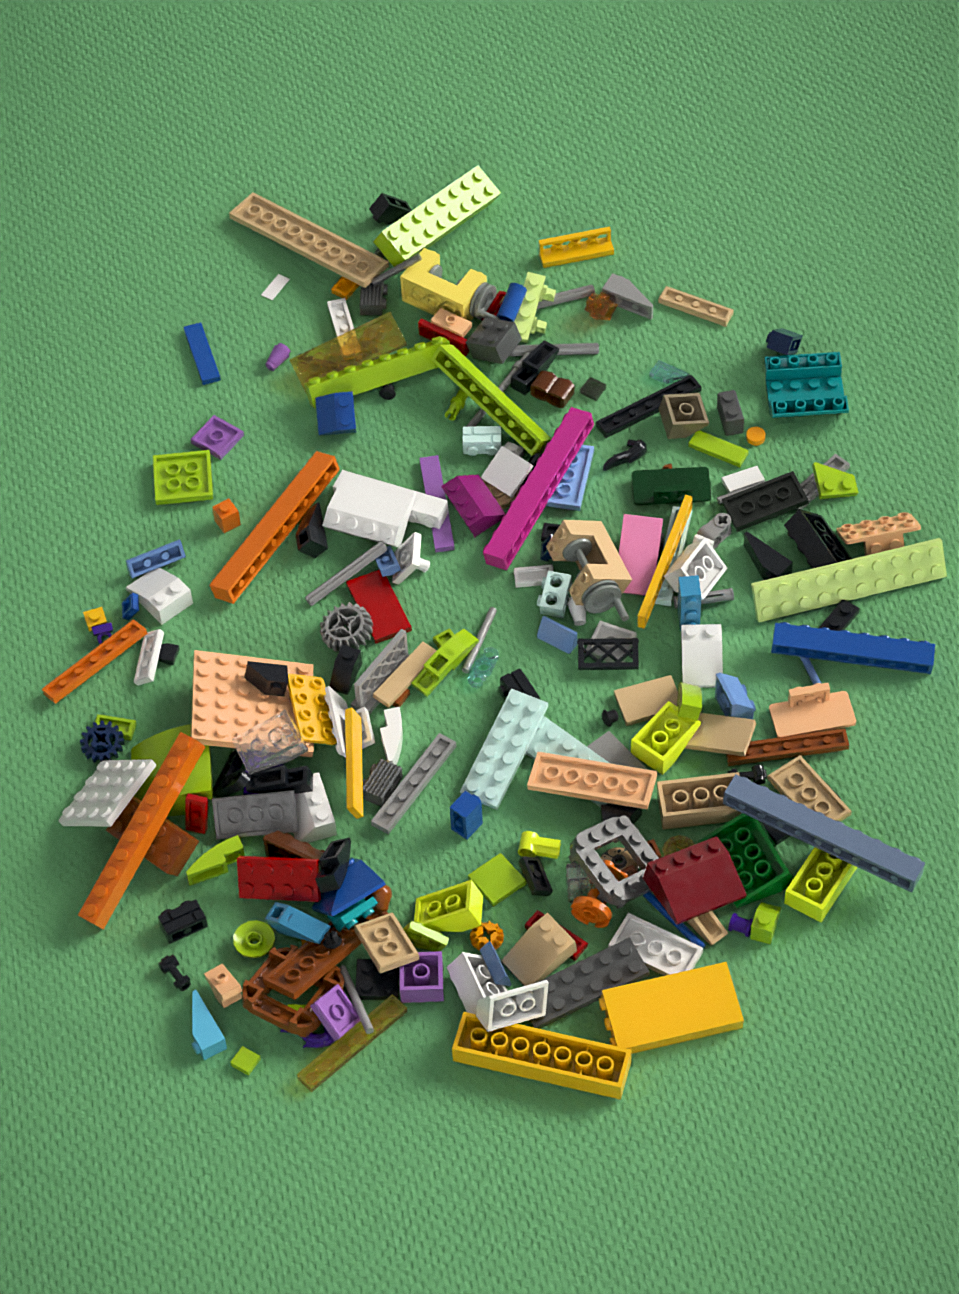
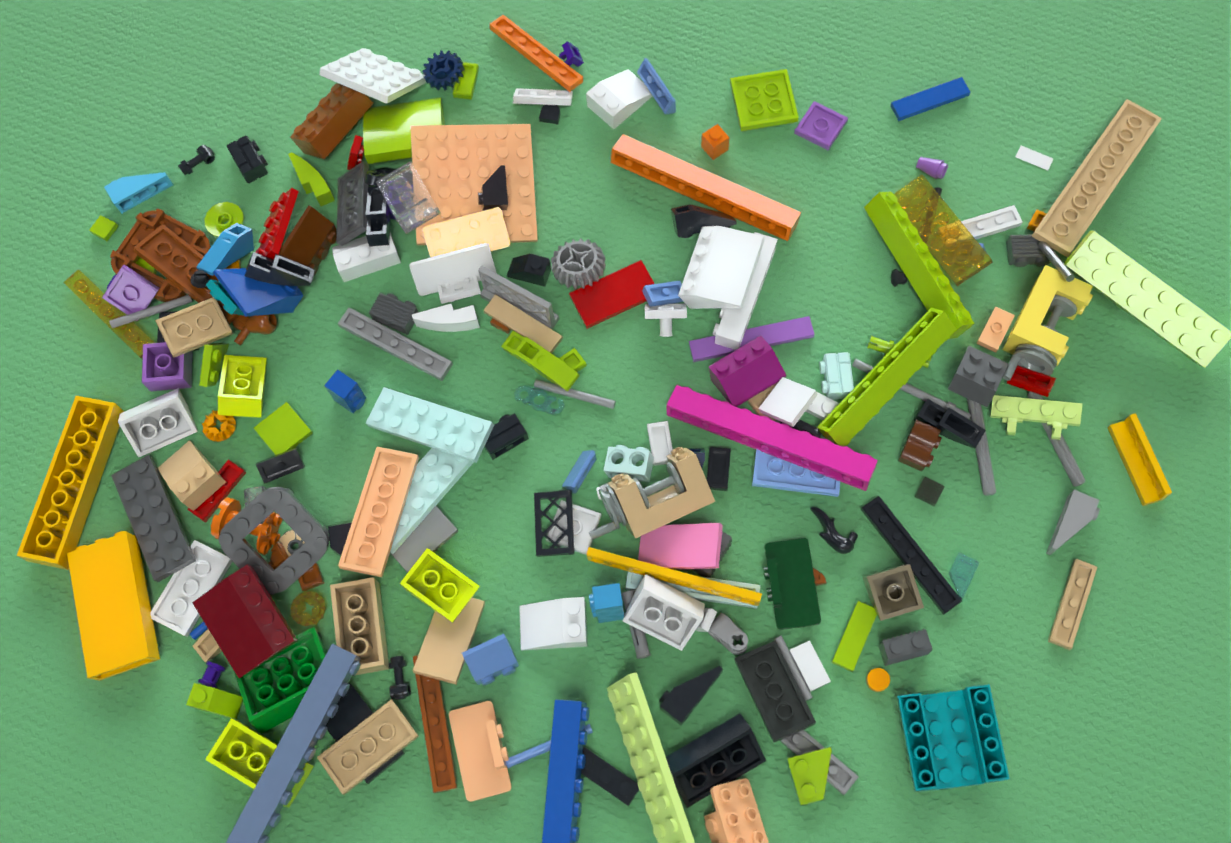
camera: 90 degrees right, 15 degrees up
(94, 617) = (589, 49): yellow plate -> none
(130, 606) = (601, 73): blue tile -> none
(141, 830) = (317, 101): orange brick -> none
(224, 985) = (171, 197): light nougat brick -> none
(336, 413) = (854, 229): blue slope -> none
(346, 573) = (647, 257): light grey axle -> none
(354, 776) = (404, 281): yellow tile -> none
(389, 209) = (1163, 256): black slope -> none
(431, 331) = (981, 322): red tile -> none
(495, 965) = (179, 435): medium blue slope -> none
(512, 302) = (1031, 389): blue pin -> none
(513, 1006) = (109, 443): white slope -> none
(533, 845) = (316, 462): neon yellow piece -> none
(600, 306) = (1048, 491): clear orange brick -> none
(609, 717) = (475, 529): black piece -> none
(645, 699) = (499, 570): tan tile -> none
(689, 701) = (486, 609): lime slope -> none
(783, 341) = (1019, 708): dark blue brick -> none

